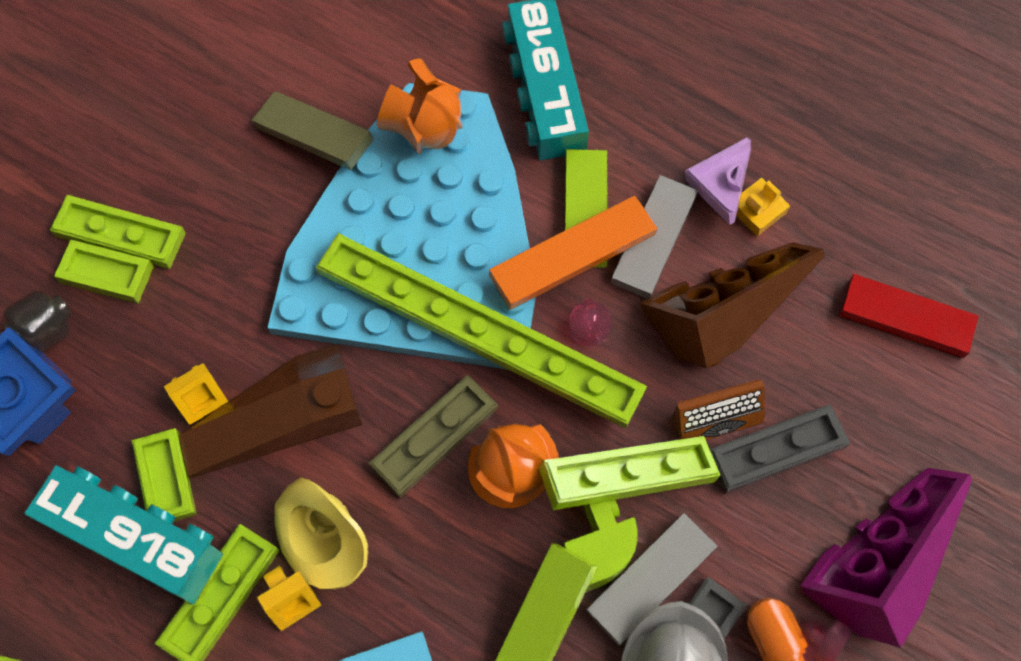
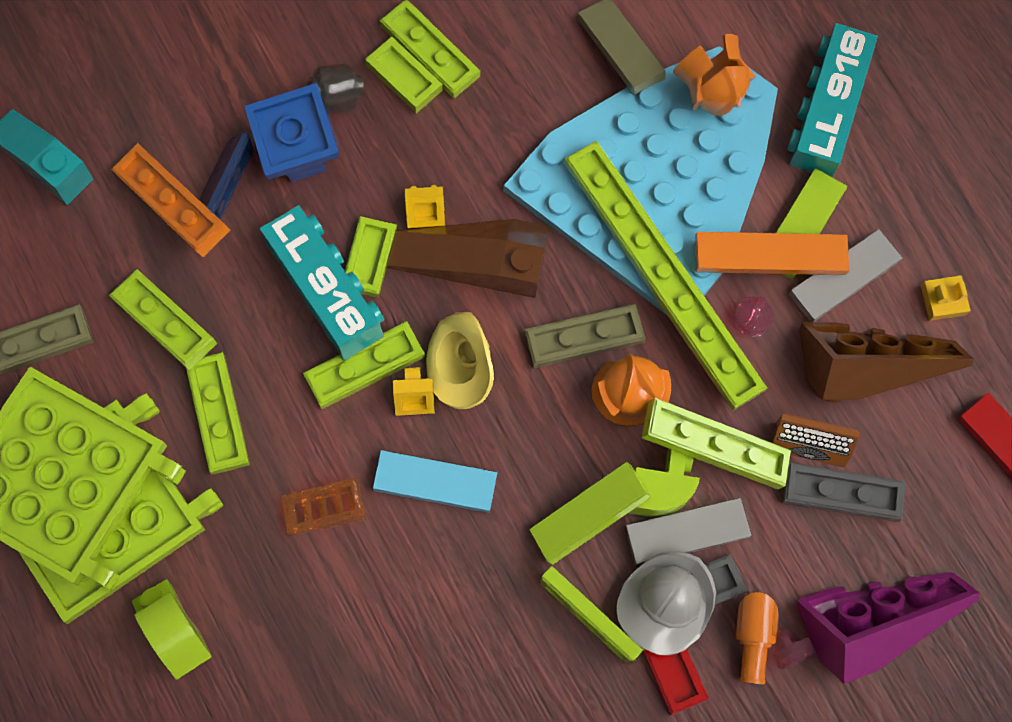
camera: 25 degrees right, 5 degrees up
(722, 178) = (928, 258): lavender tile -> none

